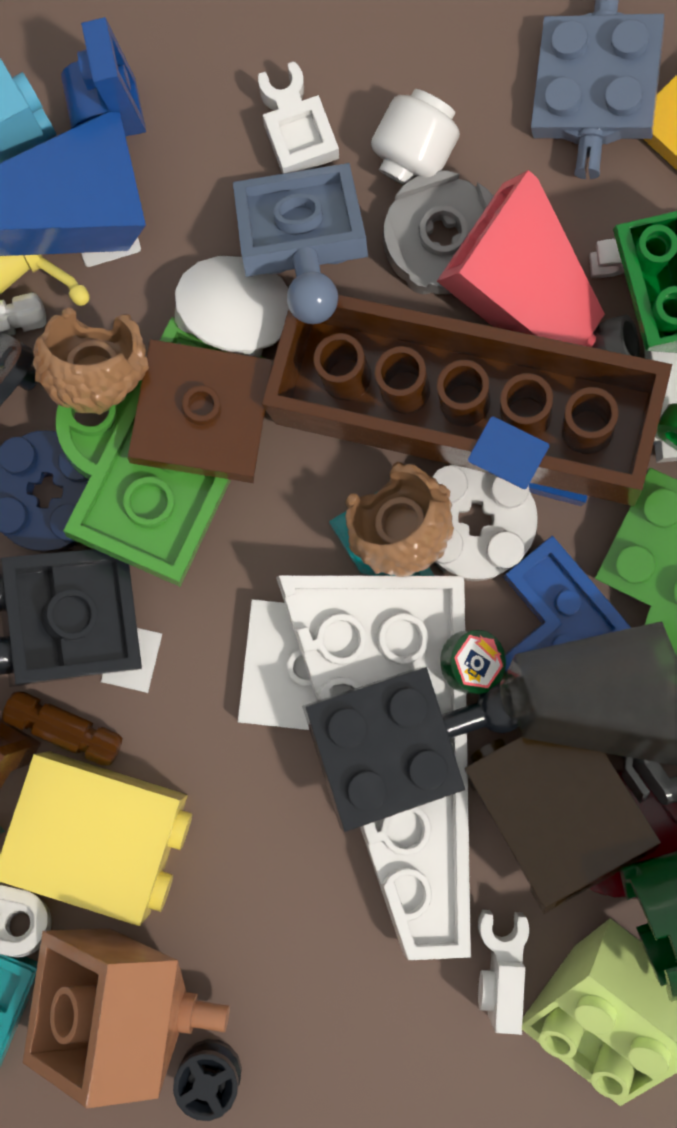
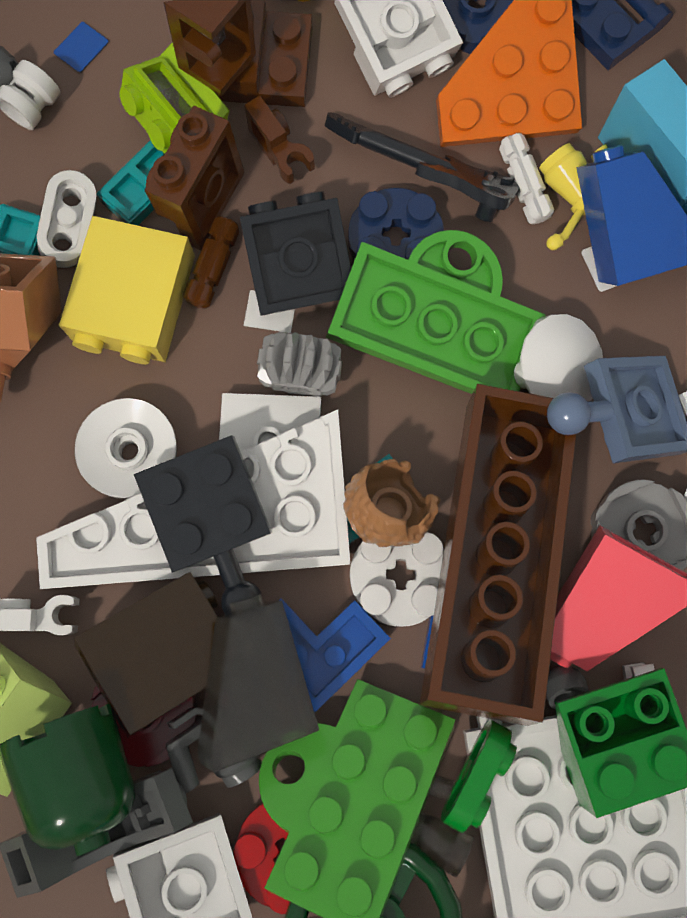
camera: 85 degrees right, 5 degrees down
(89, 365) = (496, 245): medium nougat hair -> none
(200, 411) = (467, 338): reddish brown plate -> none
(213, 620) = (299, 364): none -> light grey gear
(294, 878) = (107, 433): none -> white dish
(472, 661) = (278, 574): tile -> none
(508, 453) = (451, 583): blue sticker -> none

